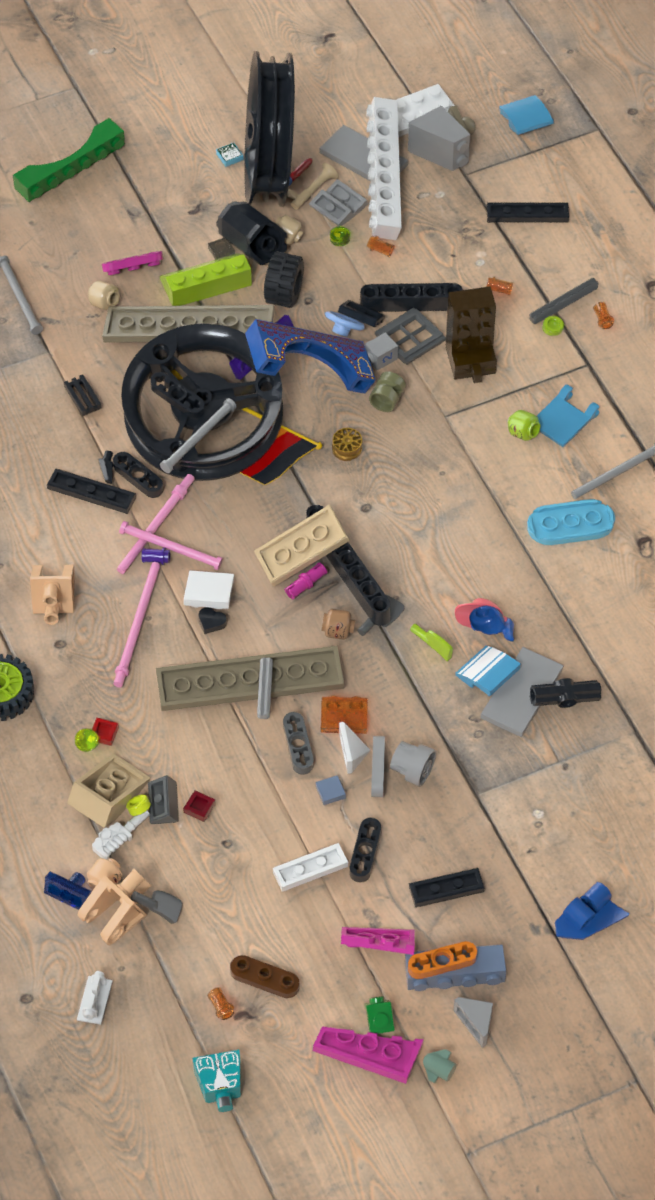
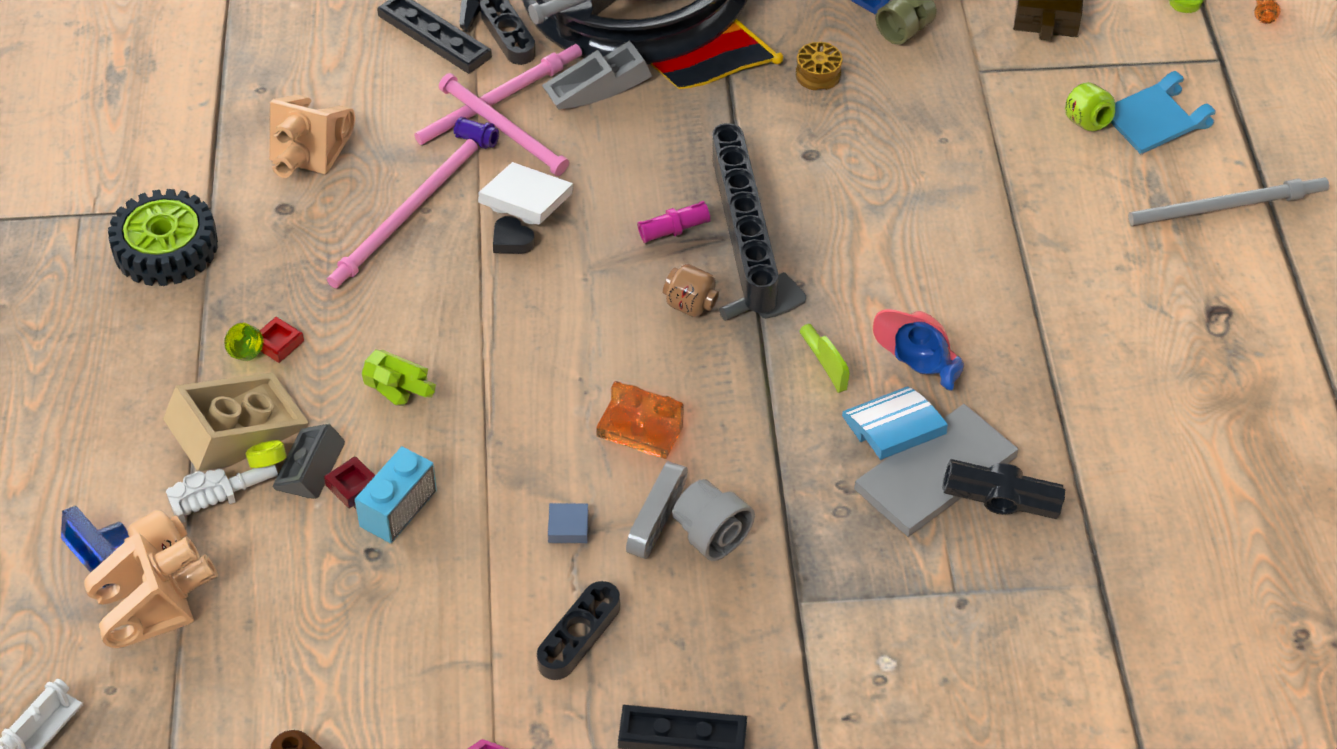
camera: 20 degrees right, 5 degrees down
(161, 904) = (216, 608): dark grey piece -> none
(190, 733) = (393, 374): none -> lime rock
(213, 494) = (598, 77): none -> light grey slope
(227, 805) = (396, 494): none -> medium azure brick
(239, 678) = (526, 328): dark tan plate -> none
(264, 691) = (535, 345): light grey axle -> none
(295, 752) = (557, 453): dark grey beam -> none
(301, 545) = (687, 170): tan tile -> none
(310, 867) = (477, 628): white plate -> none
(353, 748) = (630, 471): white slope -> none
(570, 522) = (1112, 254): medium azure tile -> none

